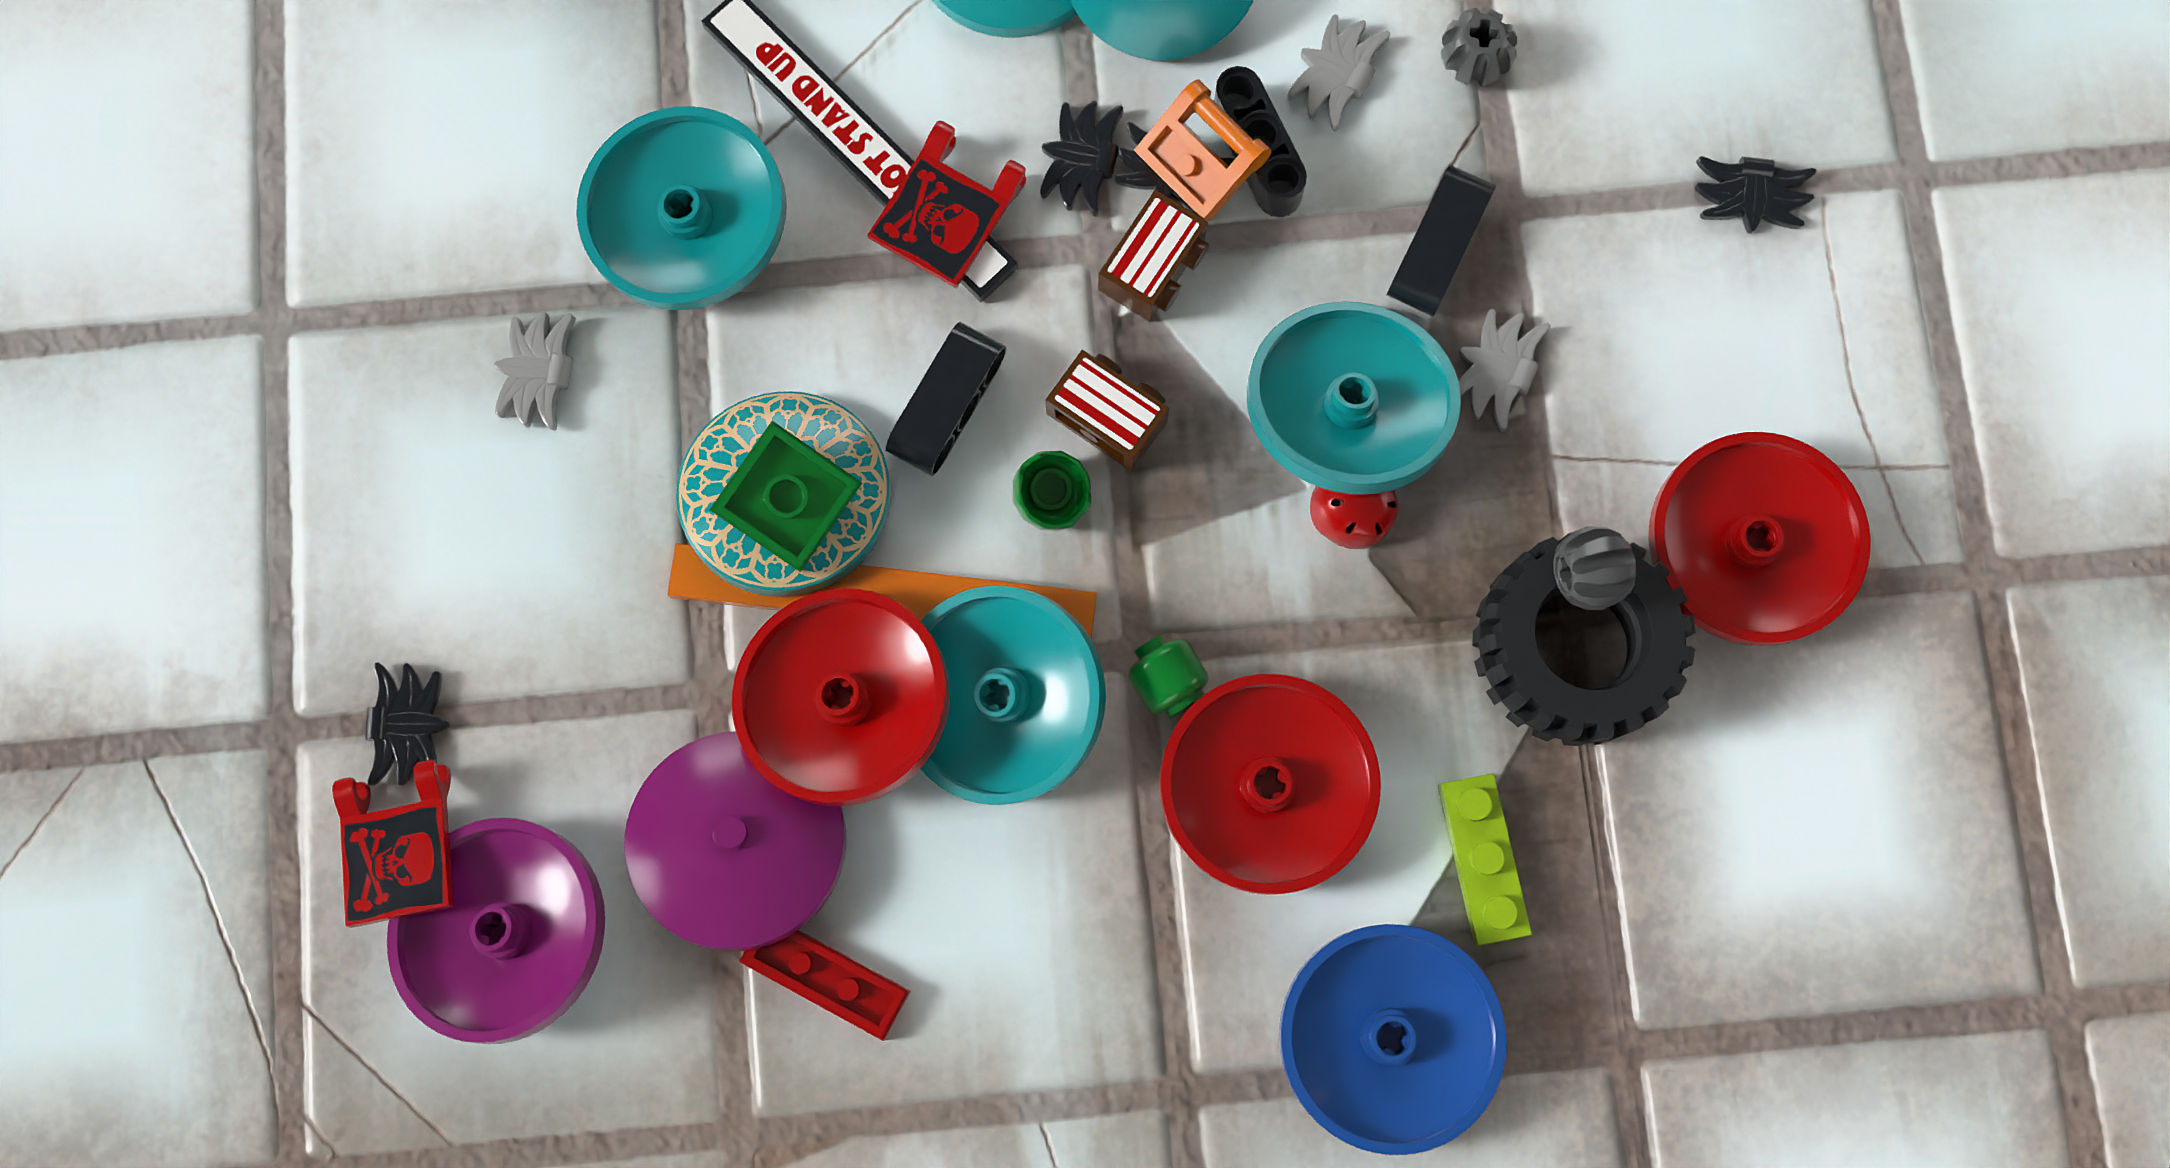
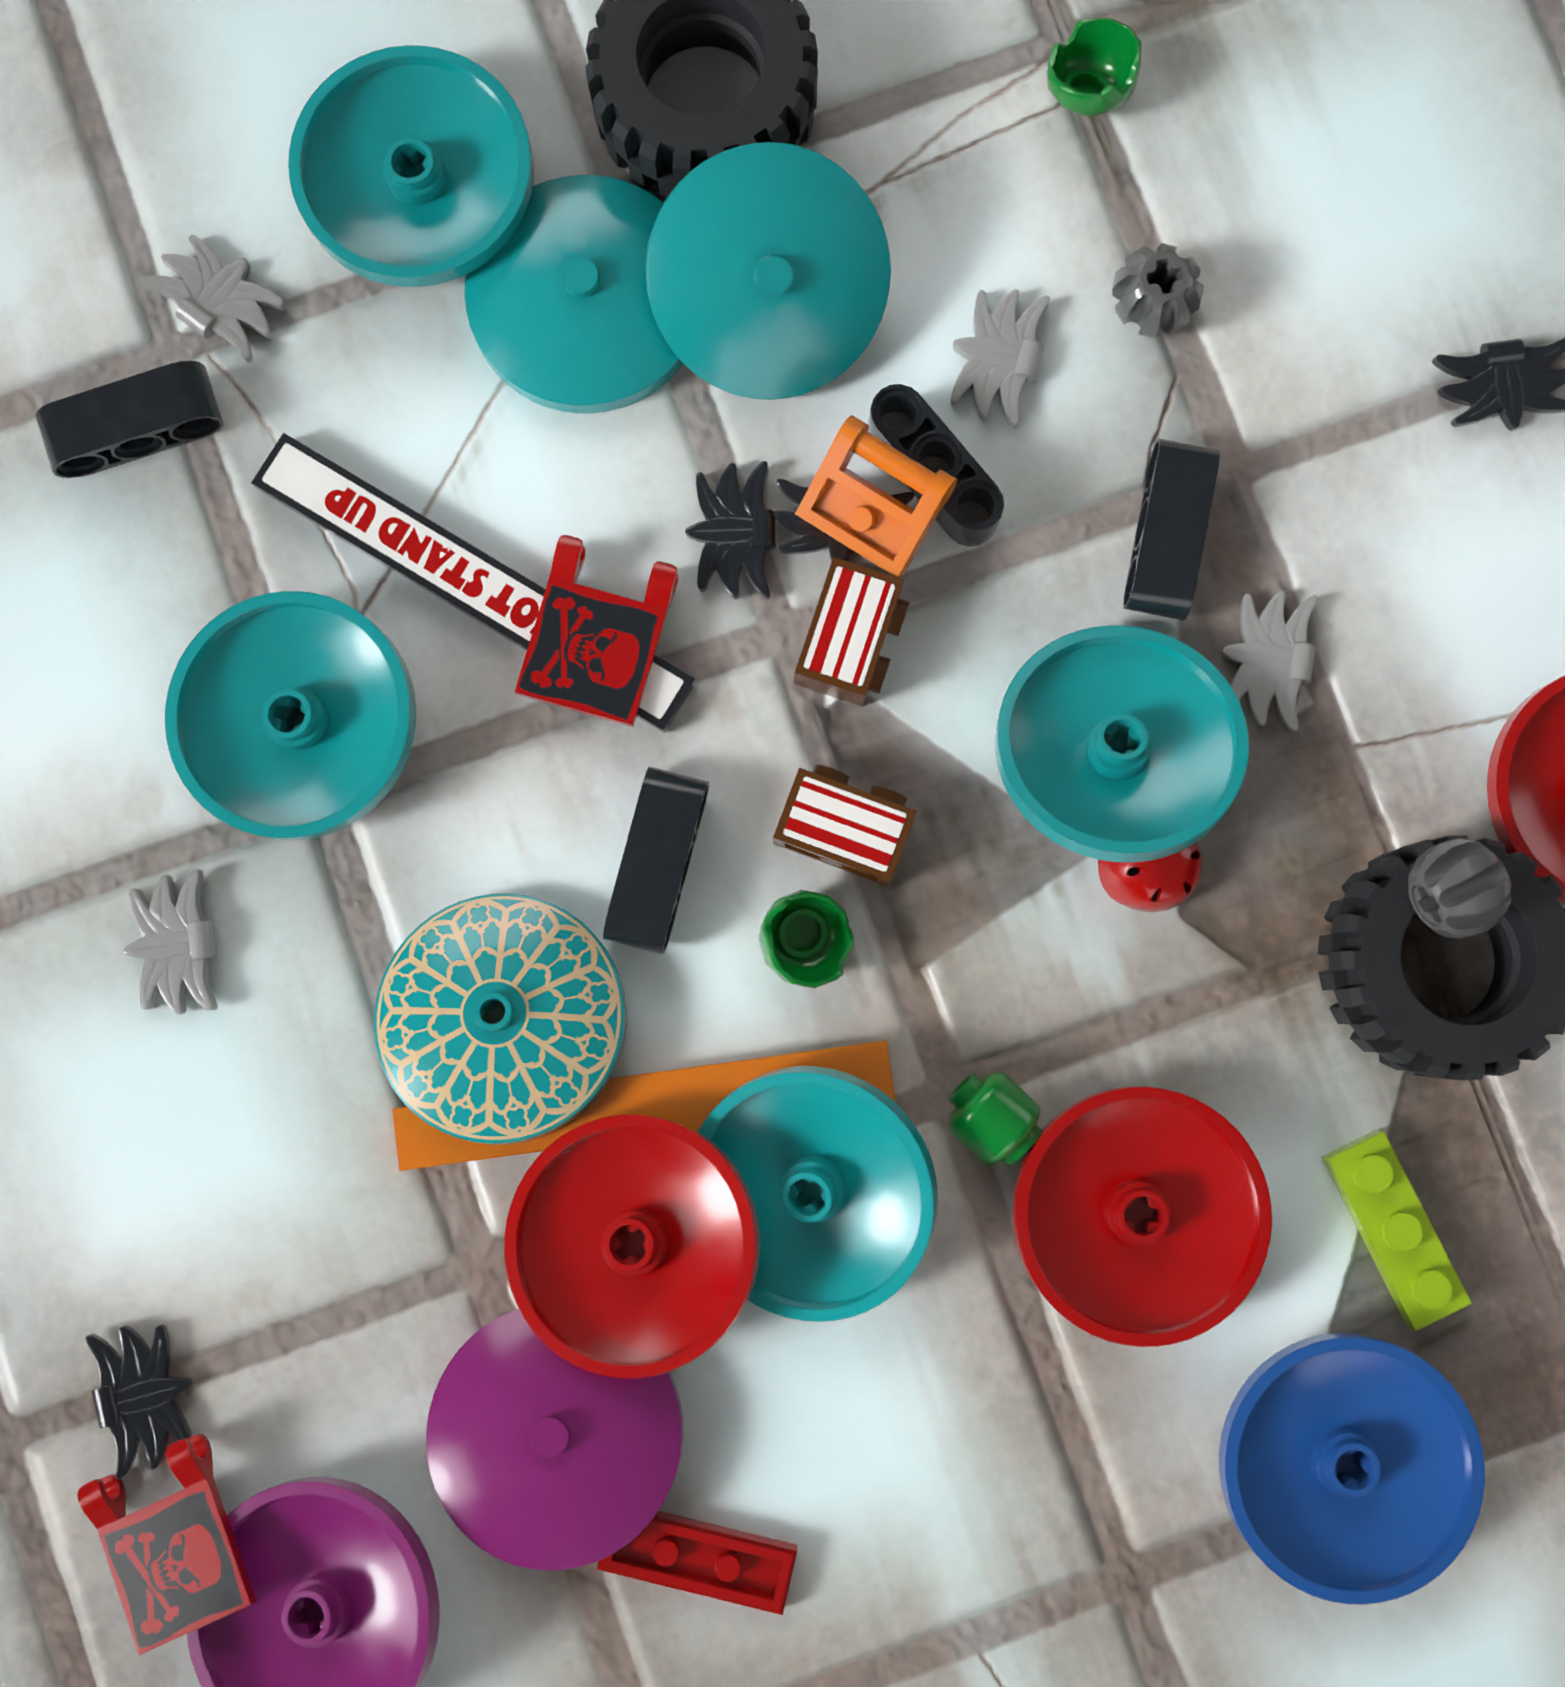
camera: 15 degrees left, 5 degrees up
(786, 496) = (507, 1034): green tile -> none

